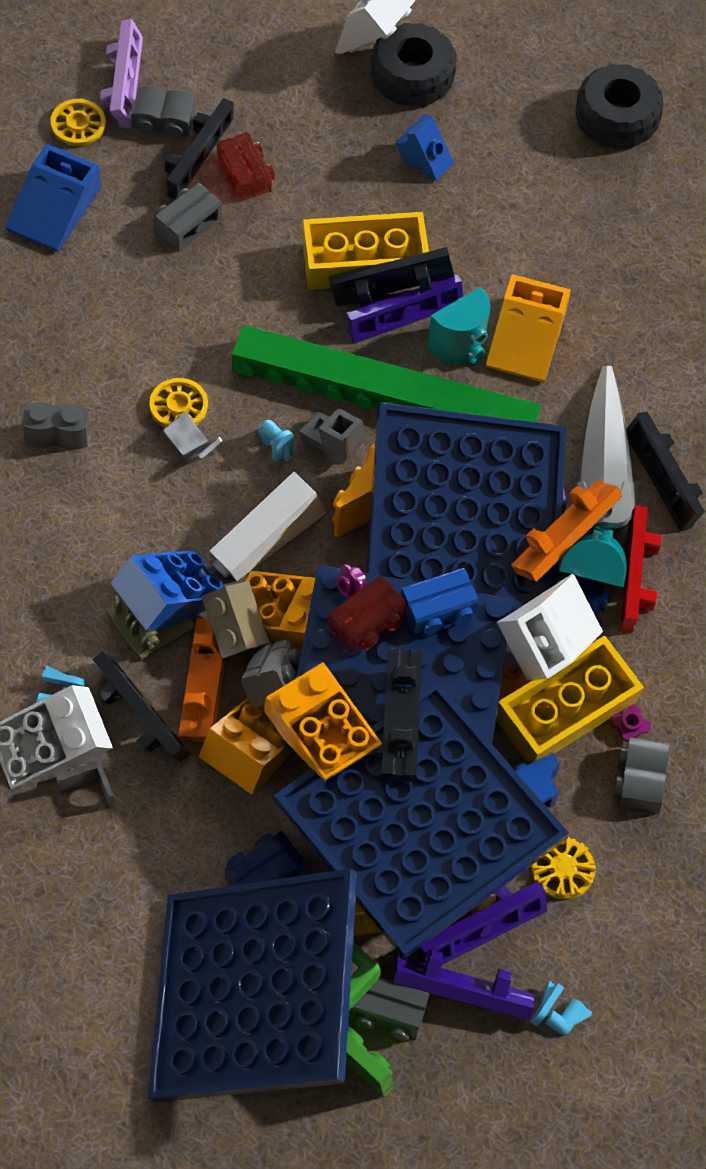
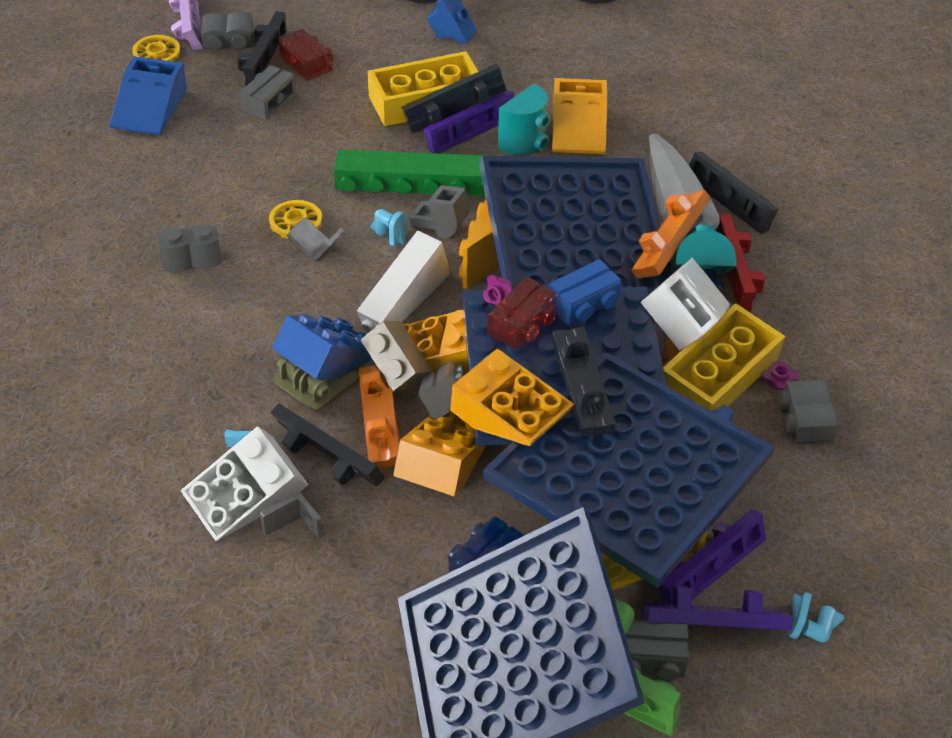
camera: 10 degrees left, 15 degrees down
(564, 869) = (769, 500): yellow wheel -> none

